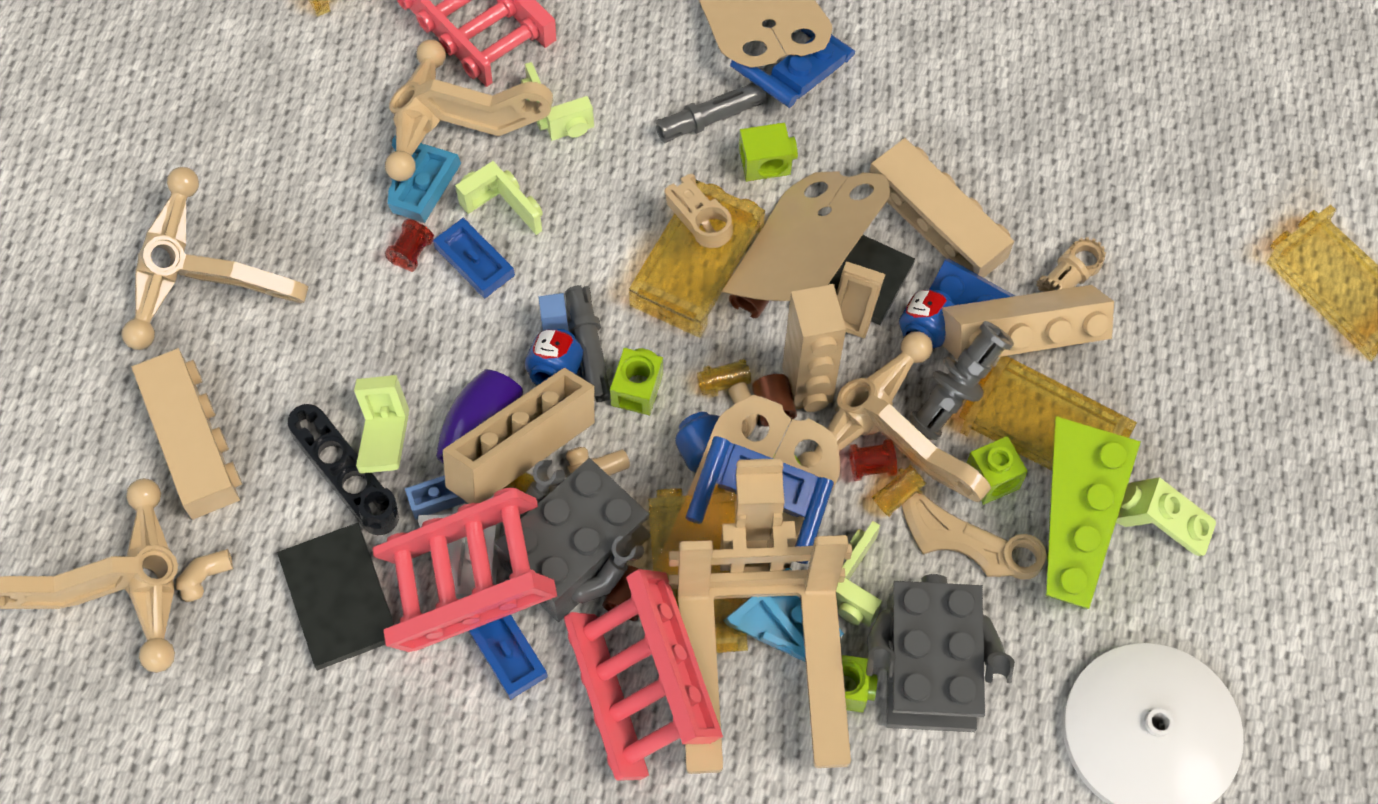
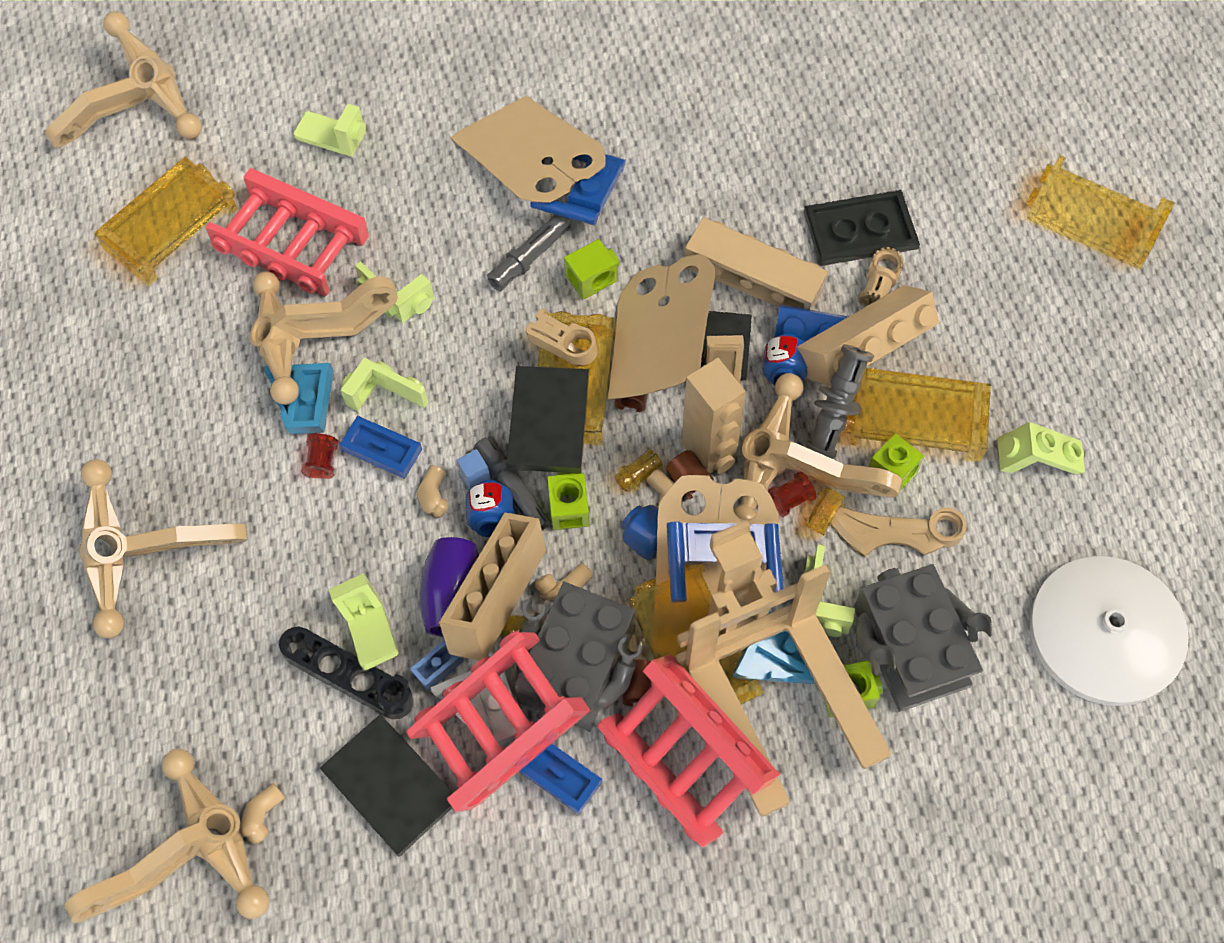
camera: 20 degrees left, 0 degrees up
(185, 433) = (192, 695): tan brick -> none
(501, 322) = (428, 492): none -> tan arm
(649, 289) = (548, 419): none -> pearl dark grey tile
(1076, 206) = (860, 227): none -> pearl dark grey tile
(1085, 501) = (983, 468): lime wedge -> none

